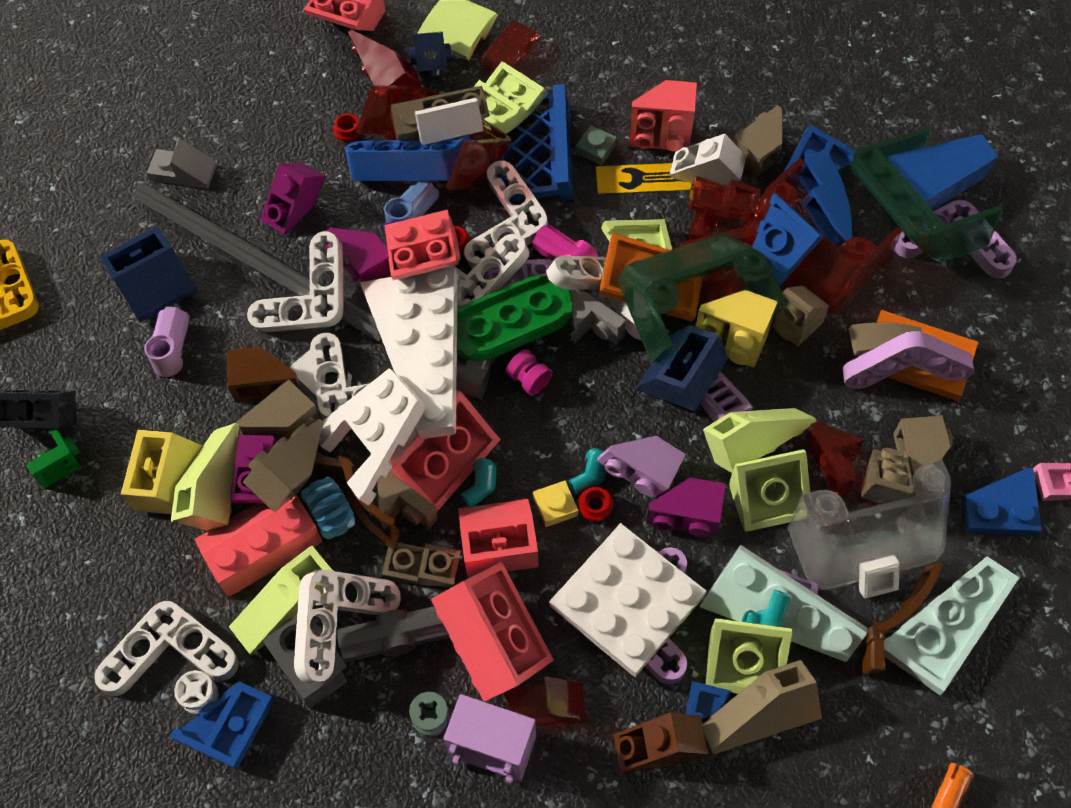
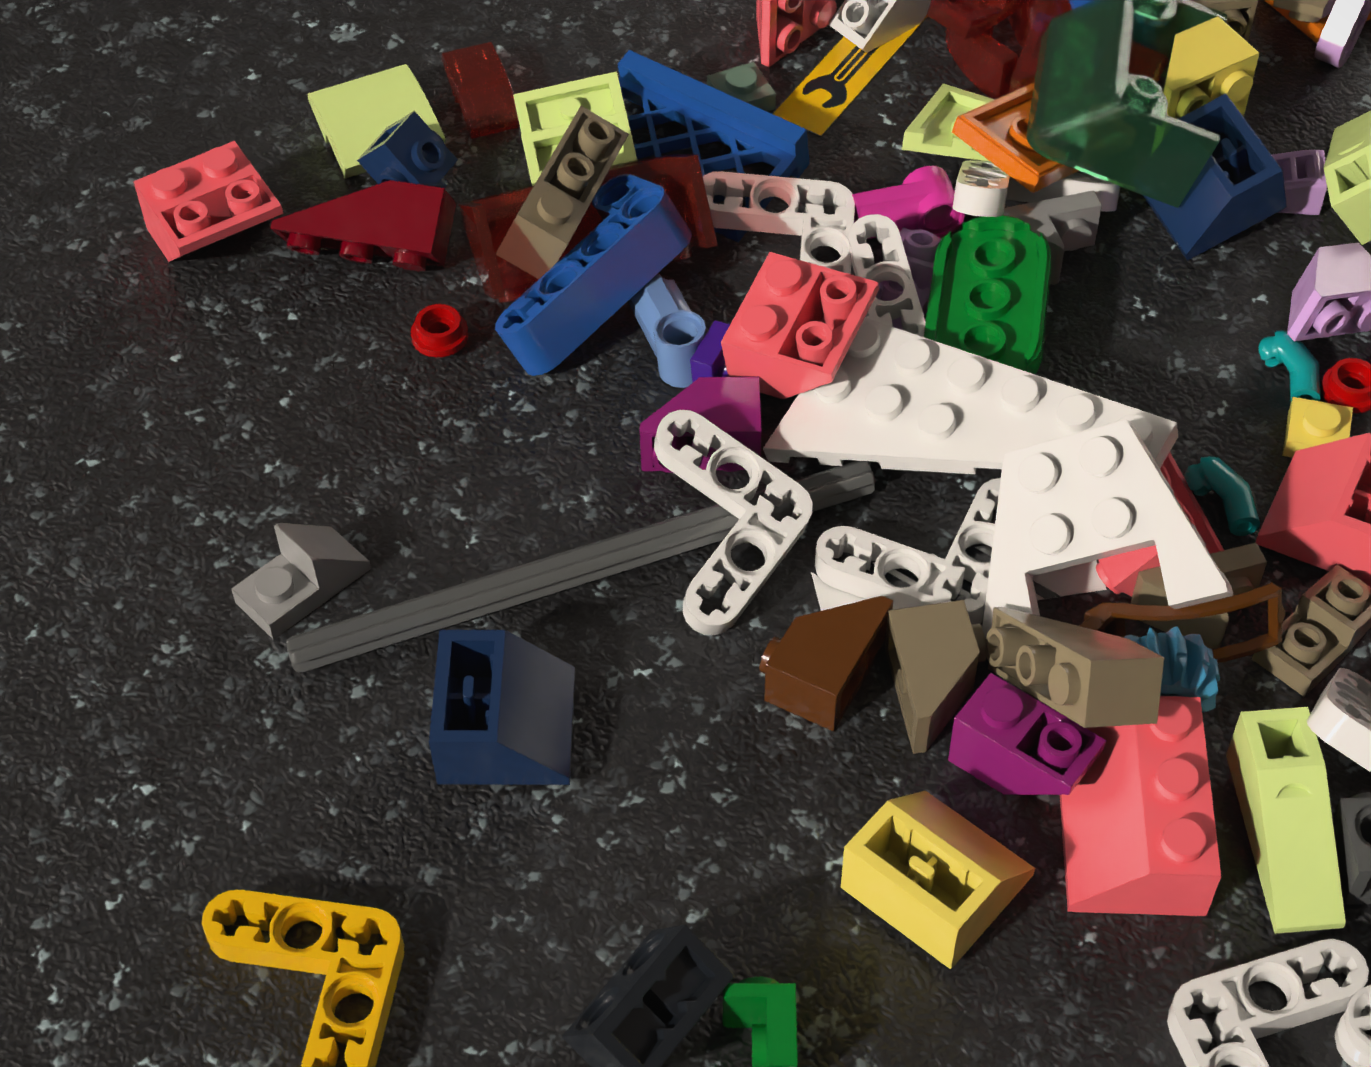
camera: 55 degrees left, 10 degrees down
(167, 341) = (653, 753): lavender piece -> none
(205, 488) = (995, 803): yellowish green slope -> none
(291, 195) = (514, 457): magenta slope -> none
(449, 121) = (608, 173): white tile -> none
(528, 372) = (1083, 343): dark pink wheel -> none

